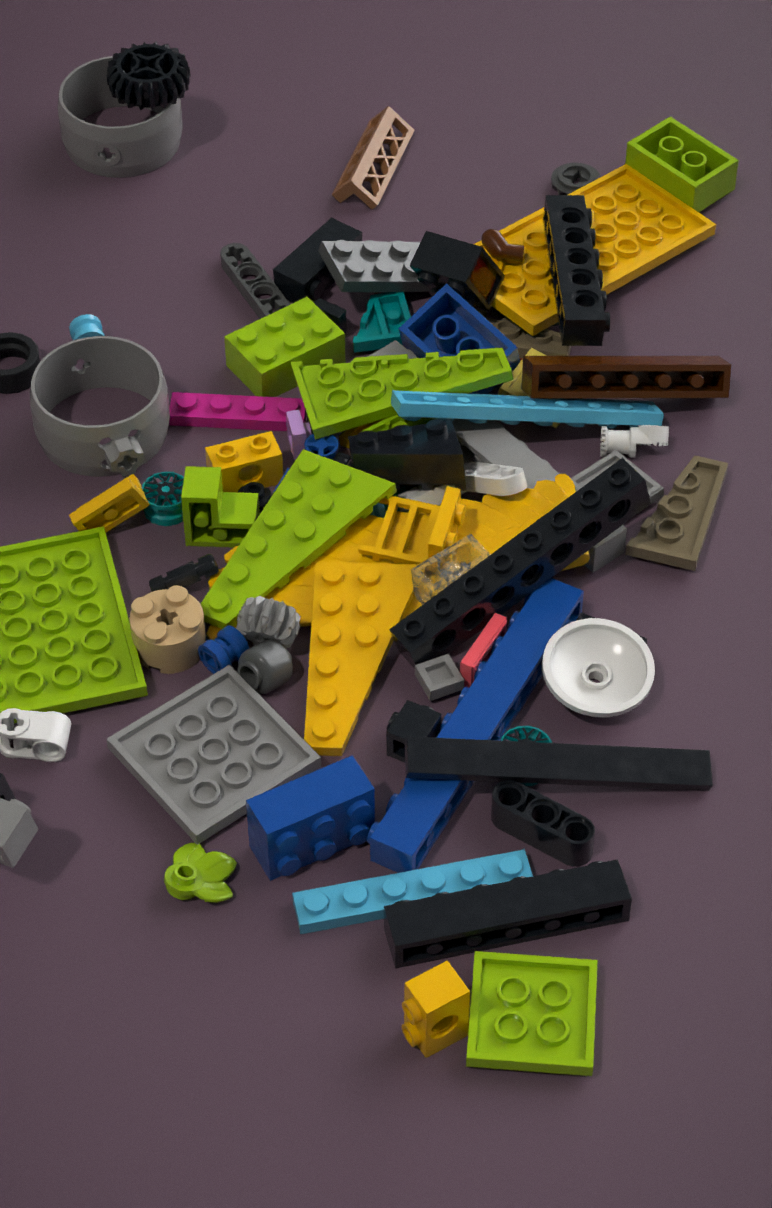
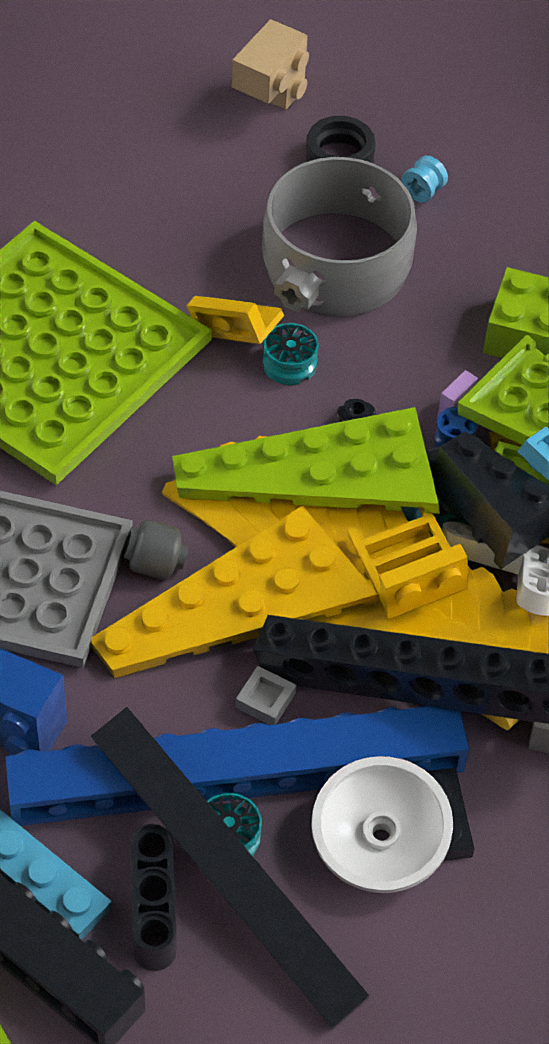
camera: 50 degrees right, 5 degrees up
(167, 629) = (131, 449): tan brick -> none
(186, 574) = (208, 422): black axle -> none
(212, 515) = (293, 387): lime brick -> none
(223, 650) = (148, 504): blue wheel -> none
(232, 411) = (440, 330): dark pink plate -> none
(247, 461) = (378, 379): yellow brick -> none
(268, 620) = (197, 516): light grey gear -> none
(411, 721) = (176, 710): black brick -> none
(446, 567) = (378, 611): clear brick -> none
(482, 647) = (327, 705): coral tile -> none

